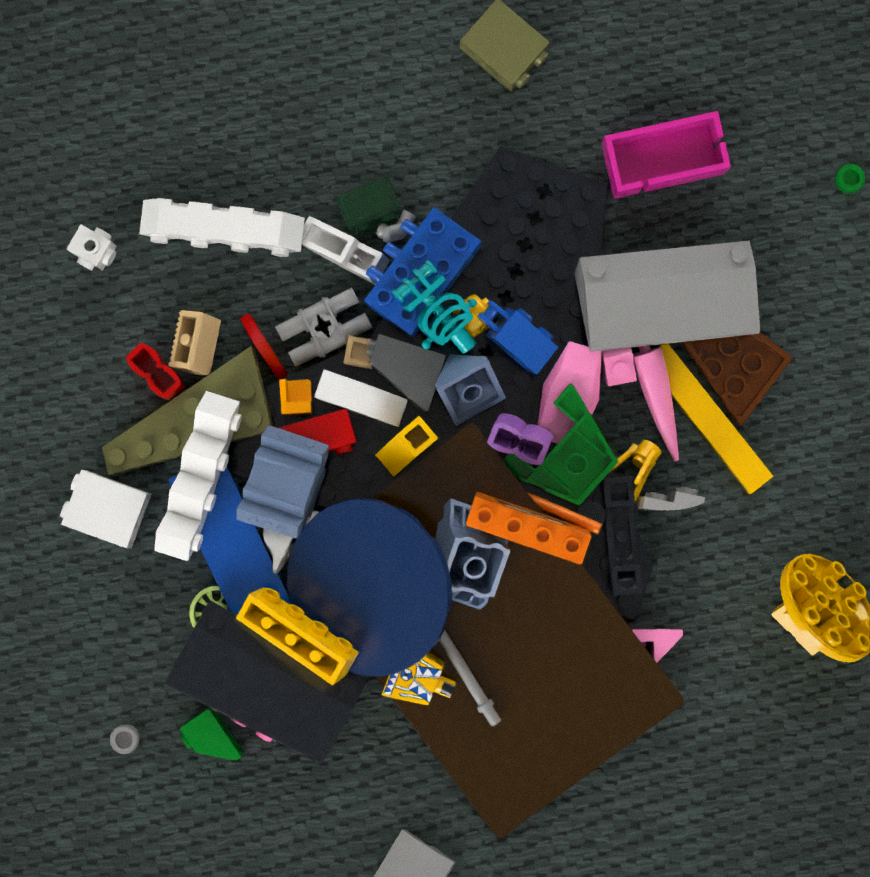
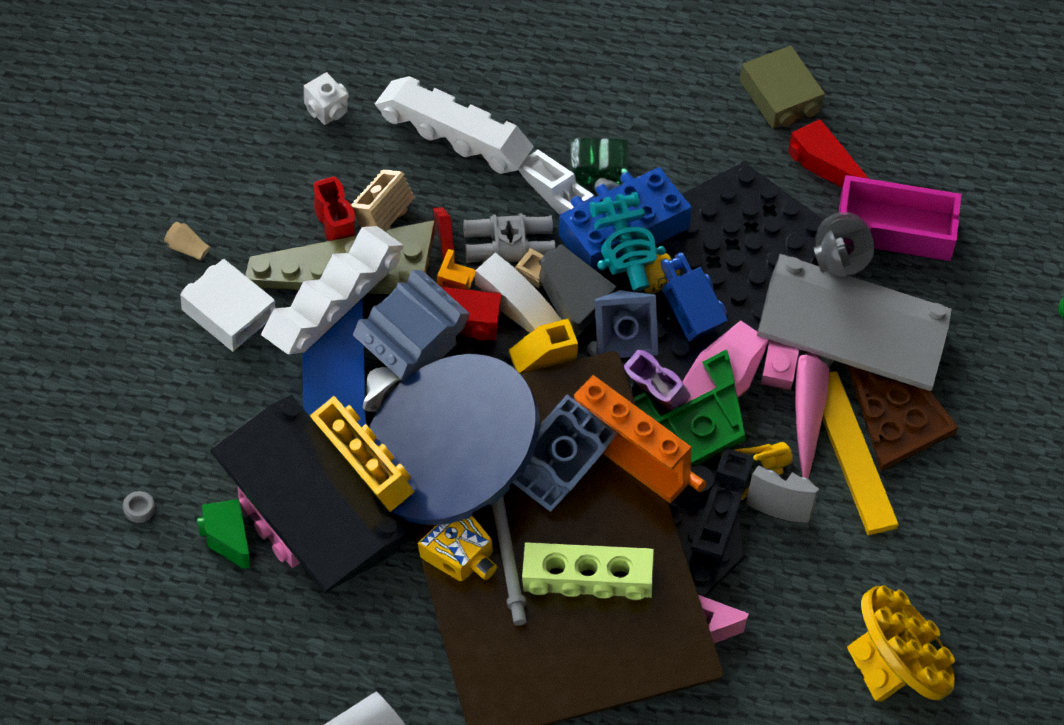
camera: 20 degrees right, 30 degrees down
(34, 455) = (185, 240): none -> tan cone
(518, 652) = (574, 559): none -> yellowish green brick
(573, 109) = (822, 153): none -> red slope
(634, 226) = (830, 247): none -> dark grey cylinder

